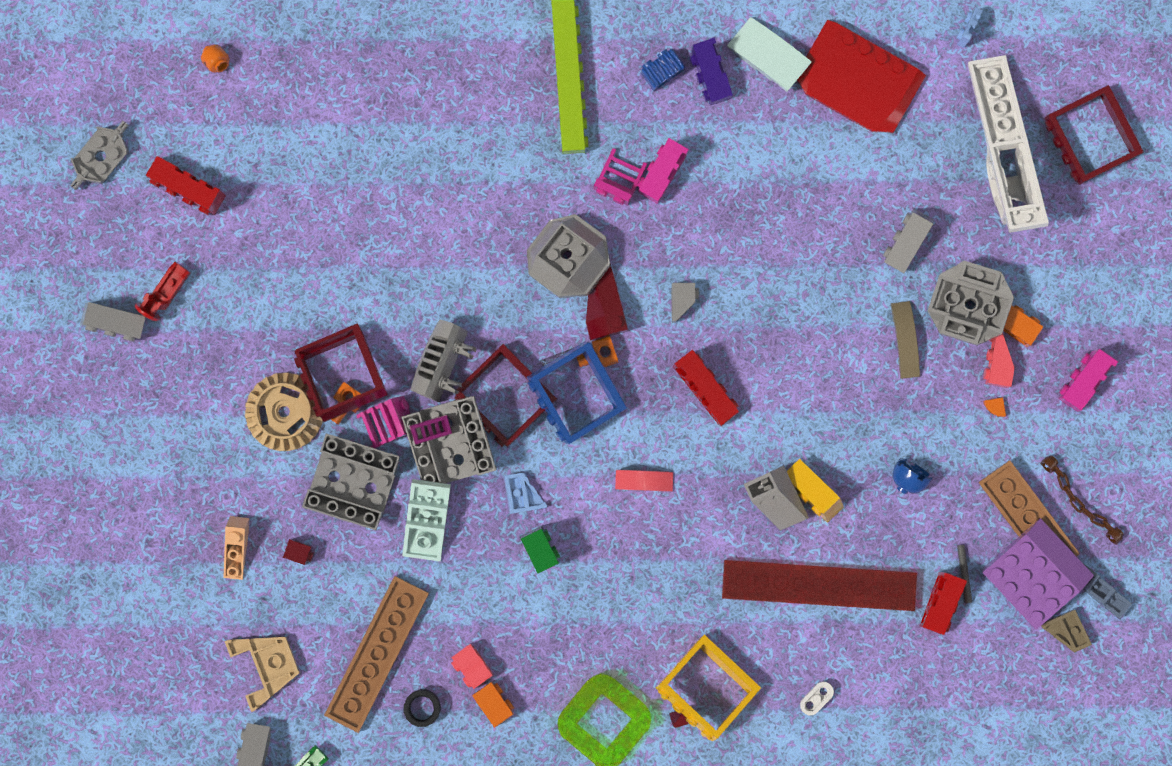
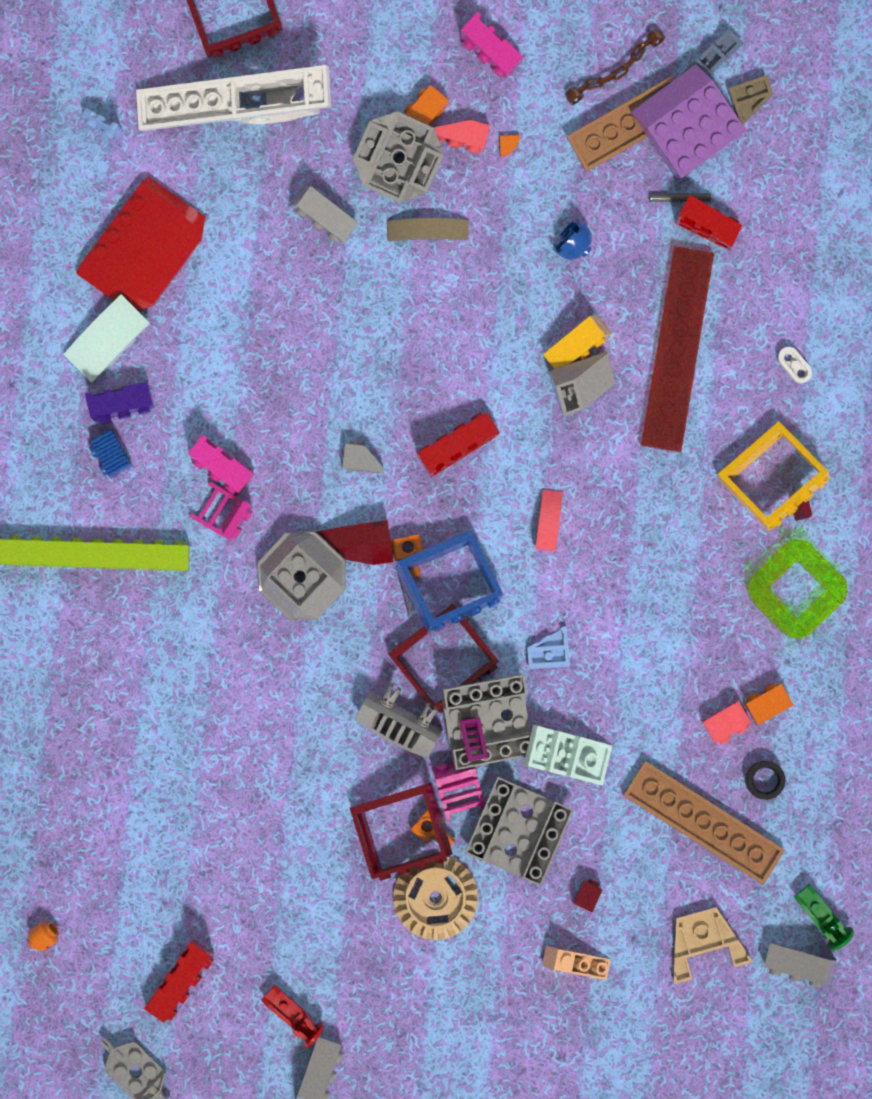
camera: 80 degrees left, 0 degrees up
(539, 549) = (612, 637): green brick -> none

